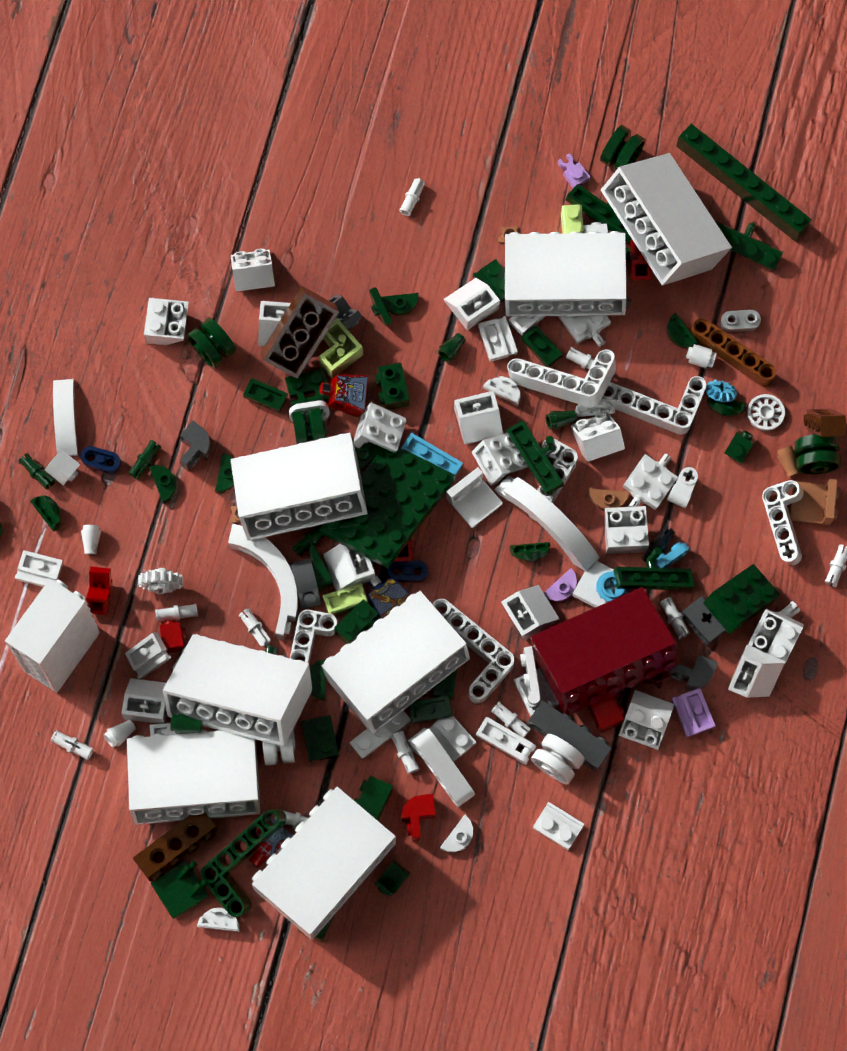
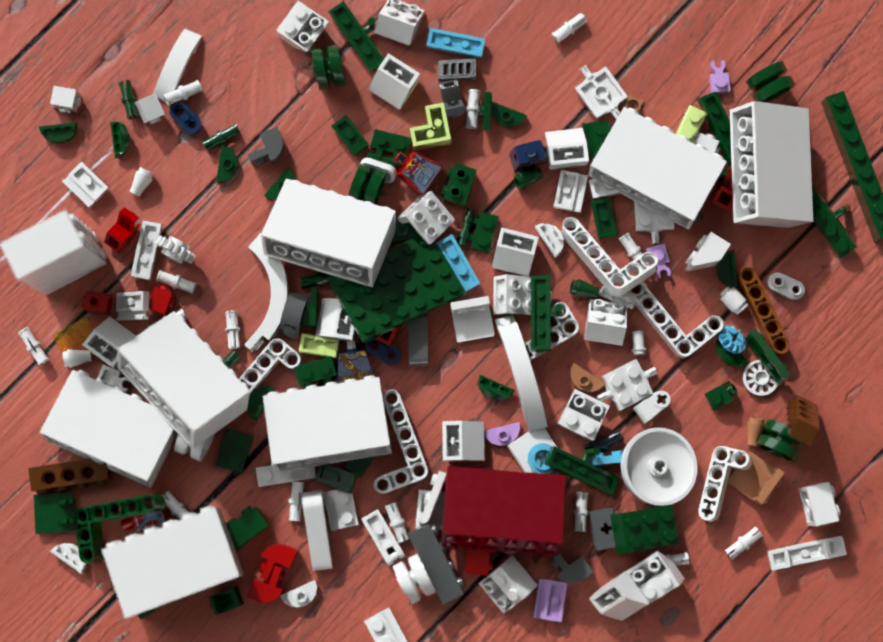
camera: 30 degrees right, 10 degrees up
(85, 438) = (182, 93): none -> white pin
(105, 713) = (73, 334): none -> clear yellow plate
(111, 671) = (97, 302): none -> red brick
(131, 599) = (146, 250): none -> white plate
(185, 724) = (124, 383): dark green cone -> none
(221, 303) = (357, 35): none -> dark green plate
(299, 332) = (404, 99): reddish brown brick -> none
(316, 263) = (455, 43): none -> medium azure plate
(330, 278) = (462, 62): none -> dark grey slope
(366, 312) = (473, 109): none -> white pin
(424, 850) = (267, 592): none -> red brick
(435, 545) = (418, 342): none -> dark grey beam
(439, 417) = (484, 230): none -> dark green plate
(442, 324) = (528, 155): none -> dark blue torso
(474, 238) = (600, 92): none -> white plate
(618, 357) = (662, 255): none -> lavender plate
(638, 440) = (638, 343): none -> white pin
(653, 325) = (709, 252): none -> white slope
(721, 537) = (659, 466): none -> white dish
(761, 389) = (767, 357): none -> dark green plate

